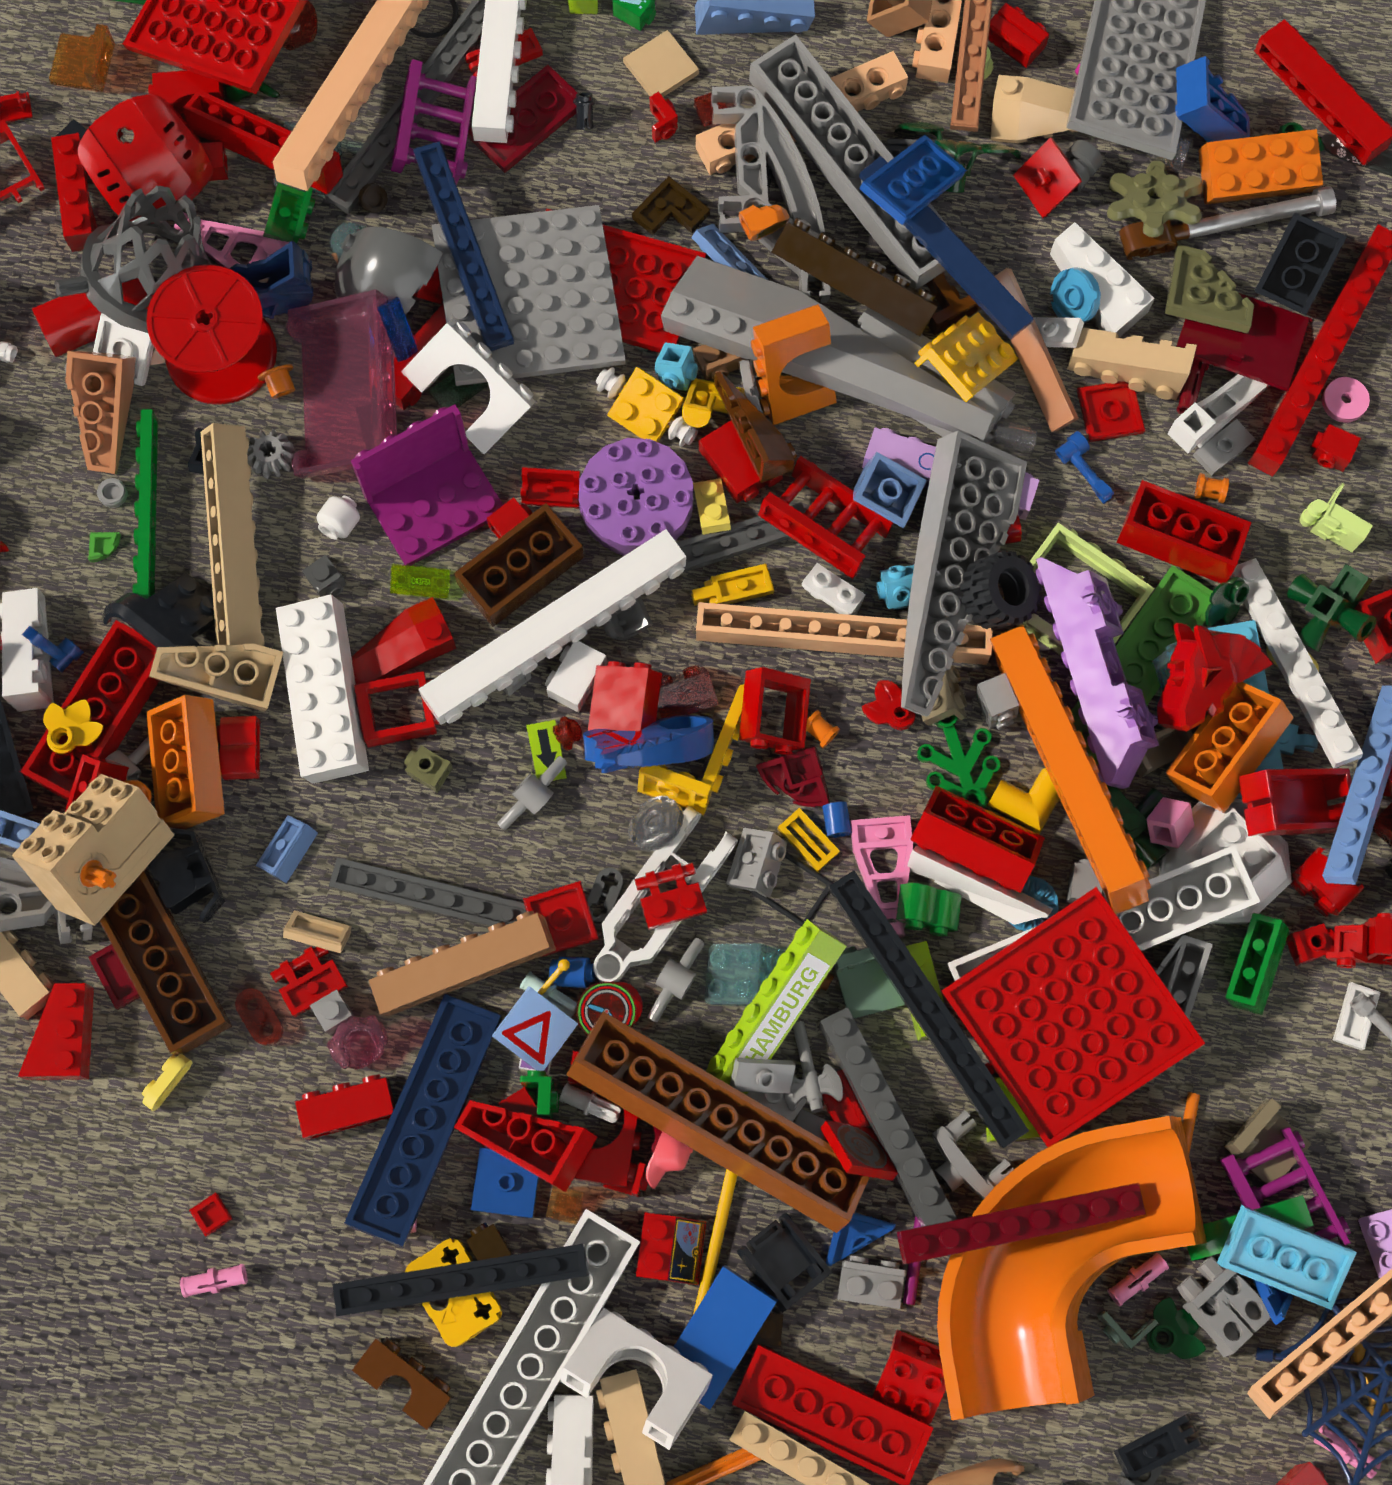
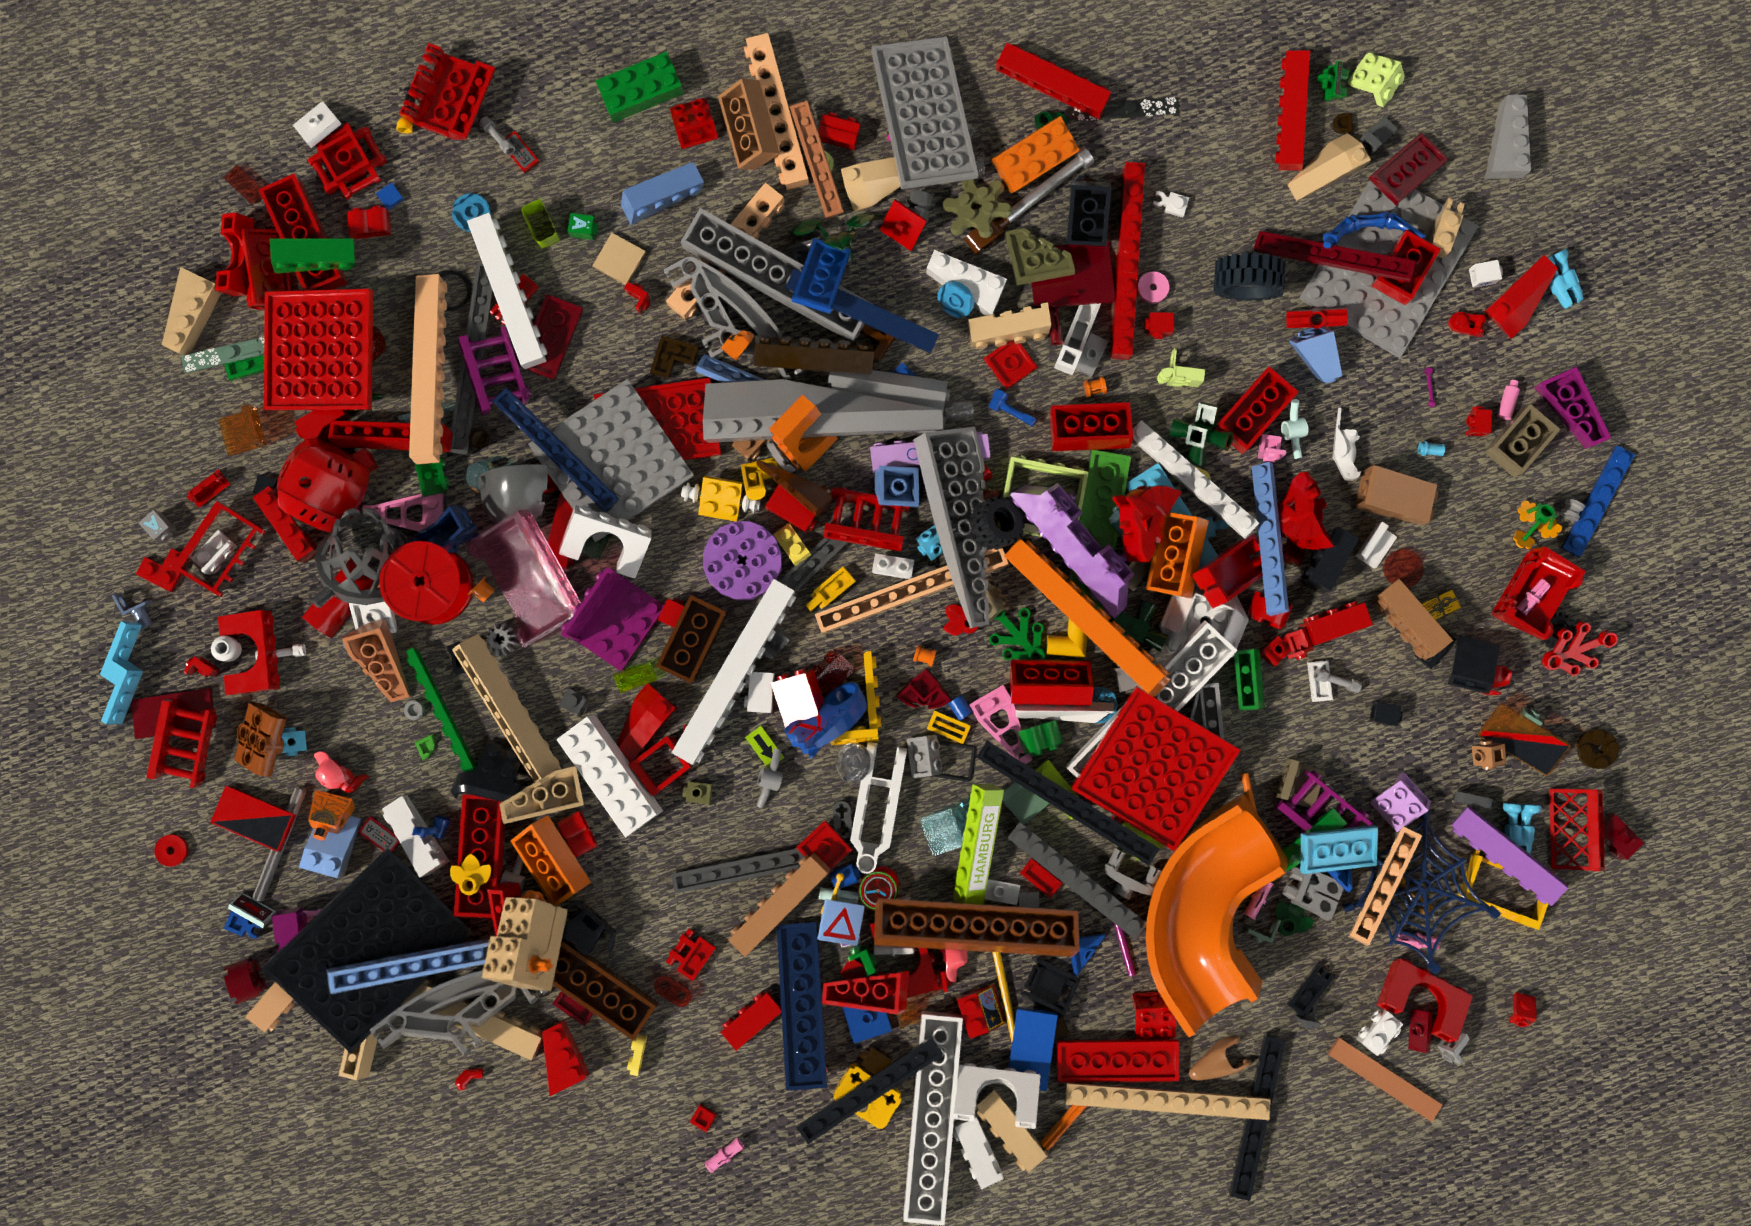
camera: 20 degrees left, 10 degrees up
(287, 848) = (637, 881): medium blue slope -> none
(317, 931) = (681, 923): tan tile -> none
(332, 1011) = (716, 968): light grey brick -> none
(338, 517) = (564, 661): white head -> none
(358, 1042) = (740, 979): clear pink hair -> none
(397, 329) = (542, 526): clear blue tile -> none
(427, 1395) = (848, 1153): reddish brown arch -> none
(550, 487) = (686, 579): red hinge -> none
(567, 732) = (772, 730): clear red plate -> none
(584, 110) = (583, 311): black pin -> none
(672, 905) = (888, 809): red plate -> none
(675, 979) = (909, 850): light grey piece -> none
(676, 366) = (727, 464): medium azure brick -> none
(705, 109) = (660, 276): clear red plate -> none
(762, 1075) = (988, 887): light grey plate -> none
(795, 712) = (905, 655): red window -> none
(811, 1085) = (1019, 876): light grey piece -> none
(858, 1150) = (1065, 904): tile -> none
(871, 1283) = (1105, 974): light grey bracket -> none
(968, 355) = (907, 374): yellow bracket -> none
(997, 702) = (1025, 590): light grey brick -> none
(1020, 1223) = (1178, 904): dark red plate -> none
(1039, 365) = (949, 351): nougat tile -> none
(1060, 331) = (953, 329): white plate -> none
(1170, 822) = (1162, 619): bright pink brick -> none
(1206, 105) = (984, 131): blue wedge -> none
(1226, 601) = (1135, 458): dark green plate -> none

